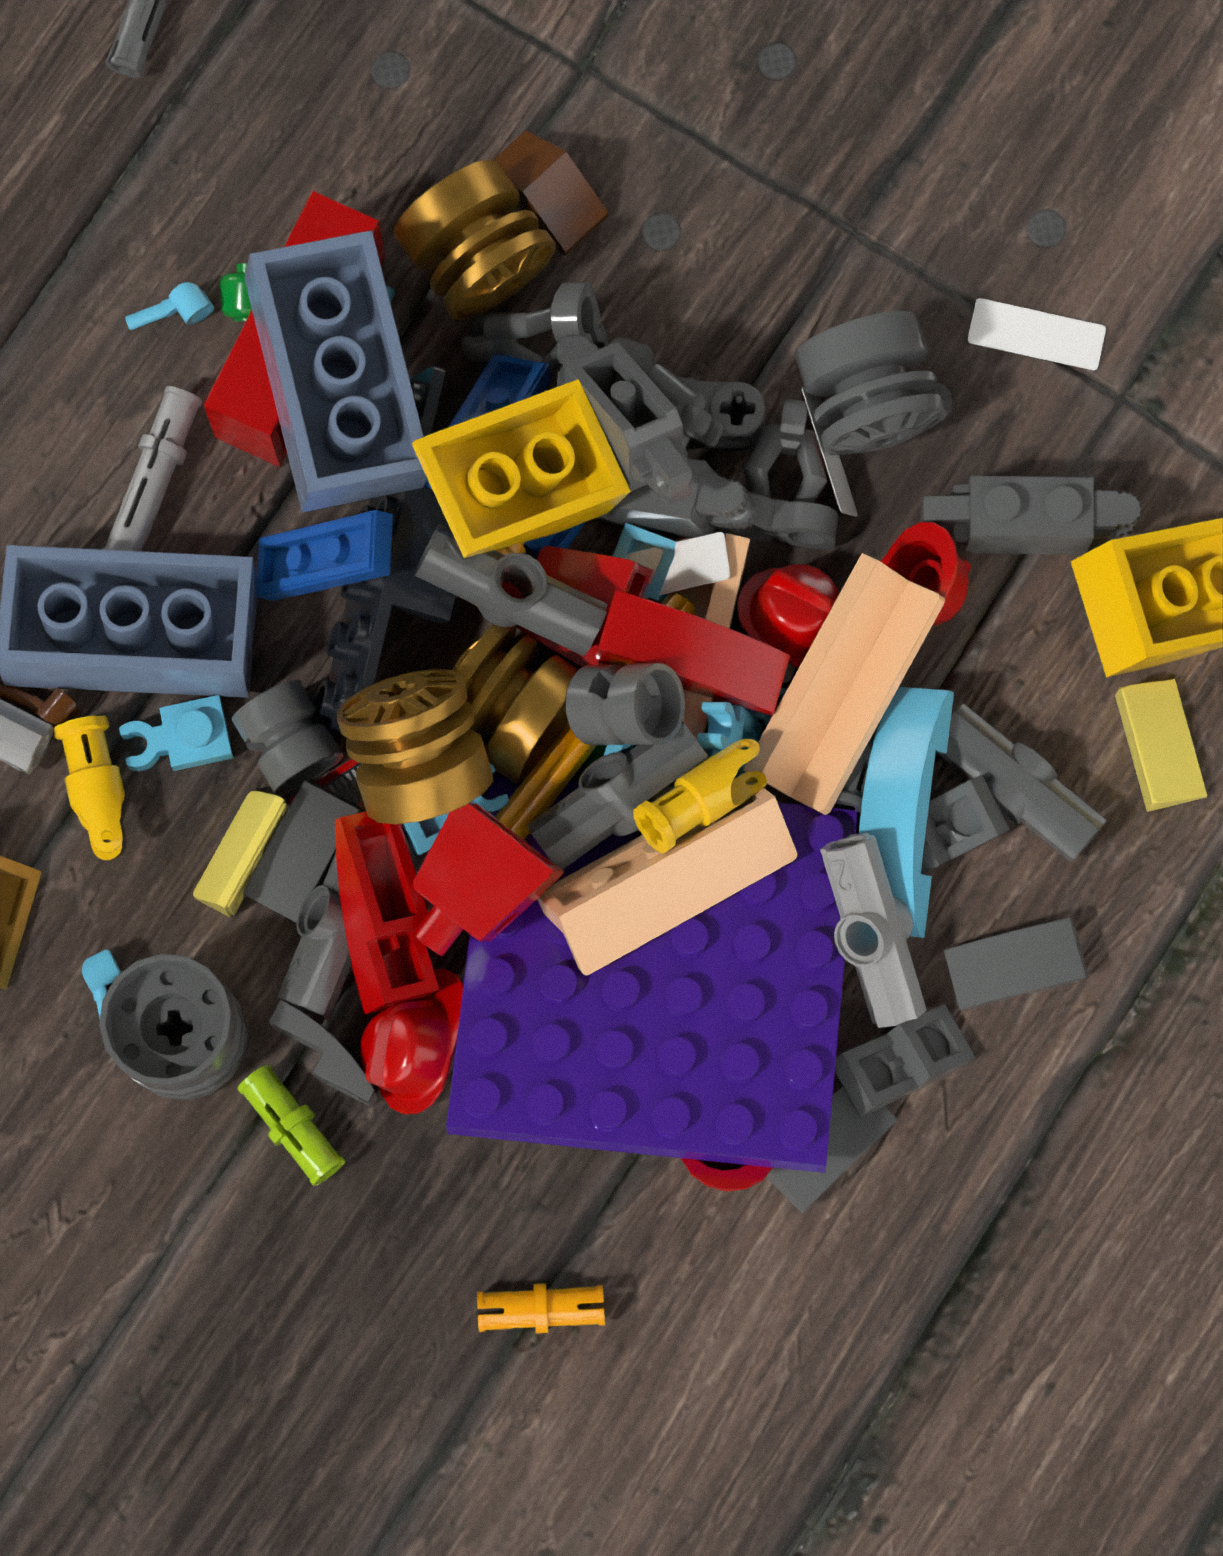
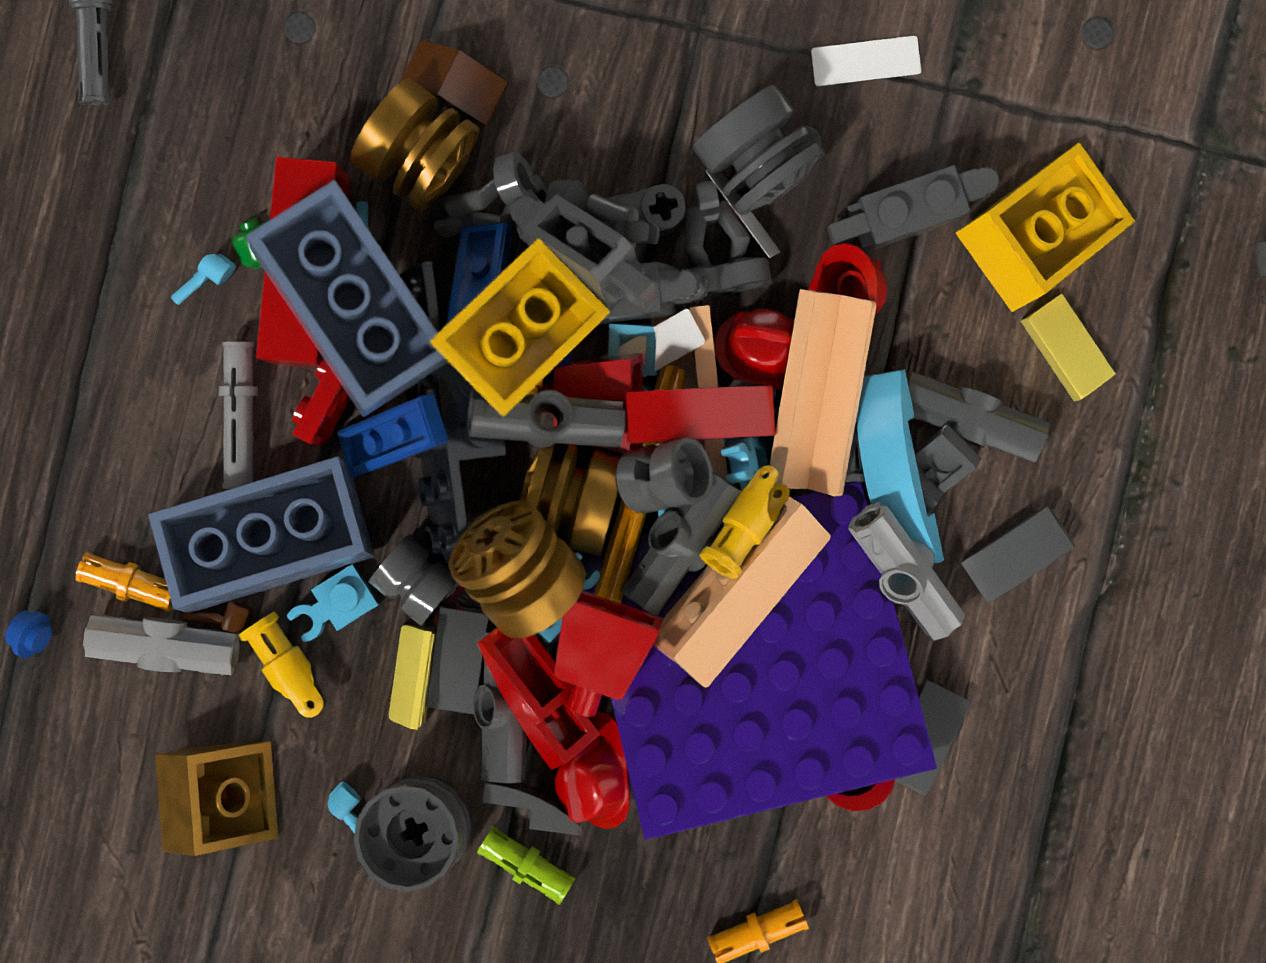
camera: 15 degrees left, 10 degrees up
(258, 499) = (321, 413): none -> red plate
(903, 1060) = (959, 657): dark grey slope -> none

